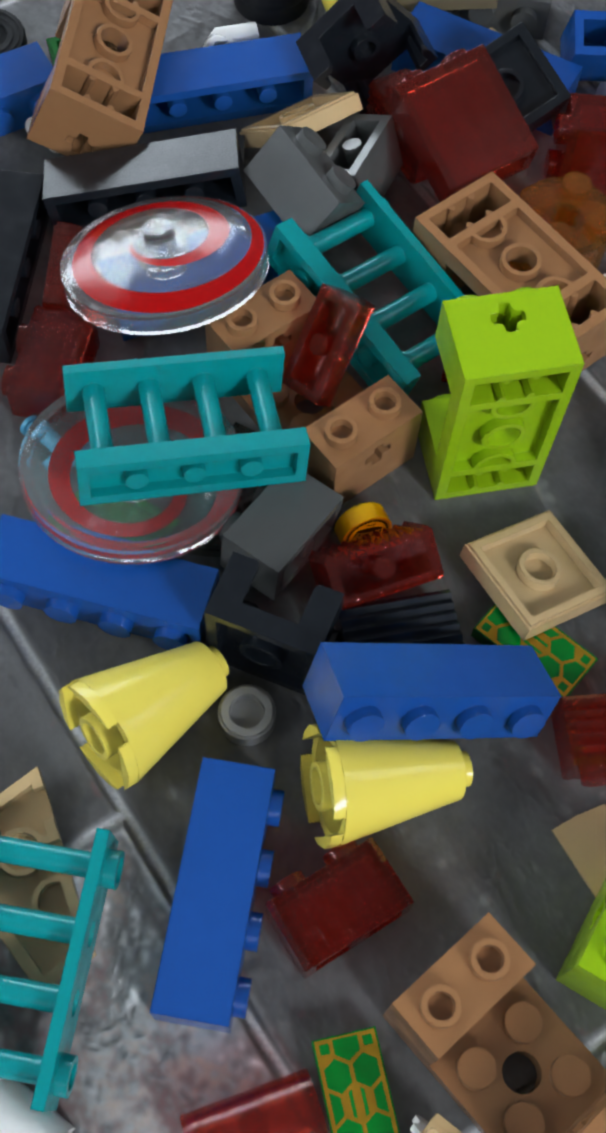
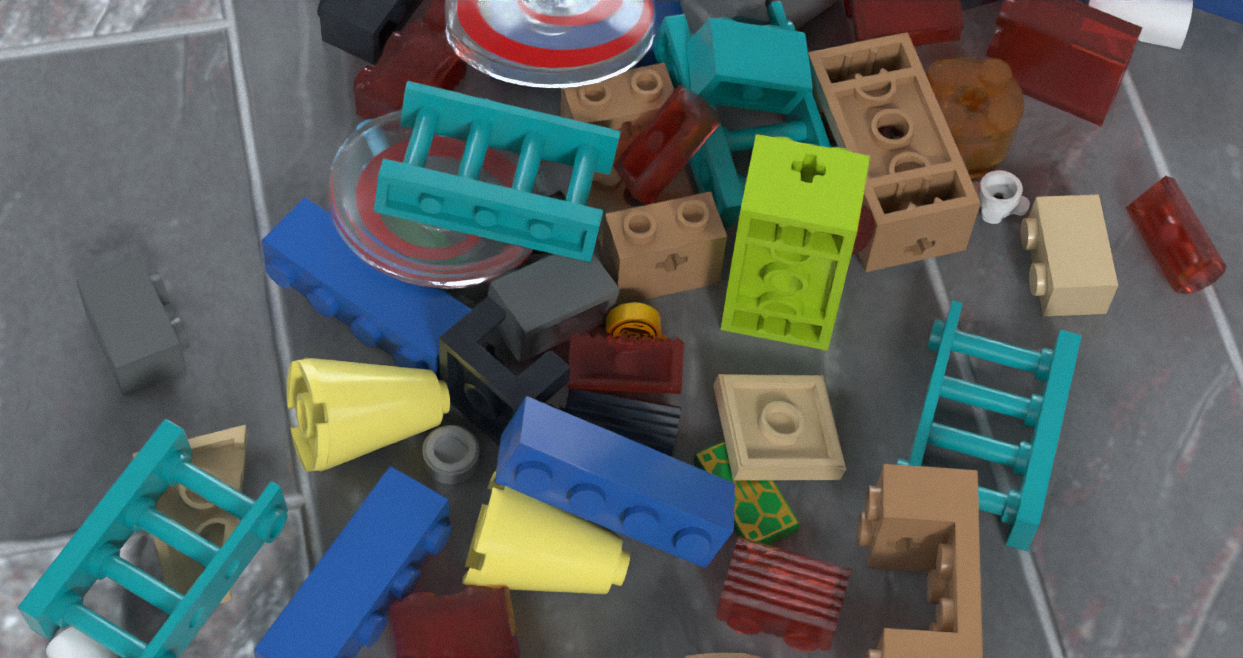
camera: 20 degrees right, 5 degrees down
(372, 245) = (749, 65): none -> teal brick

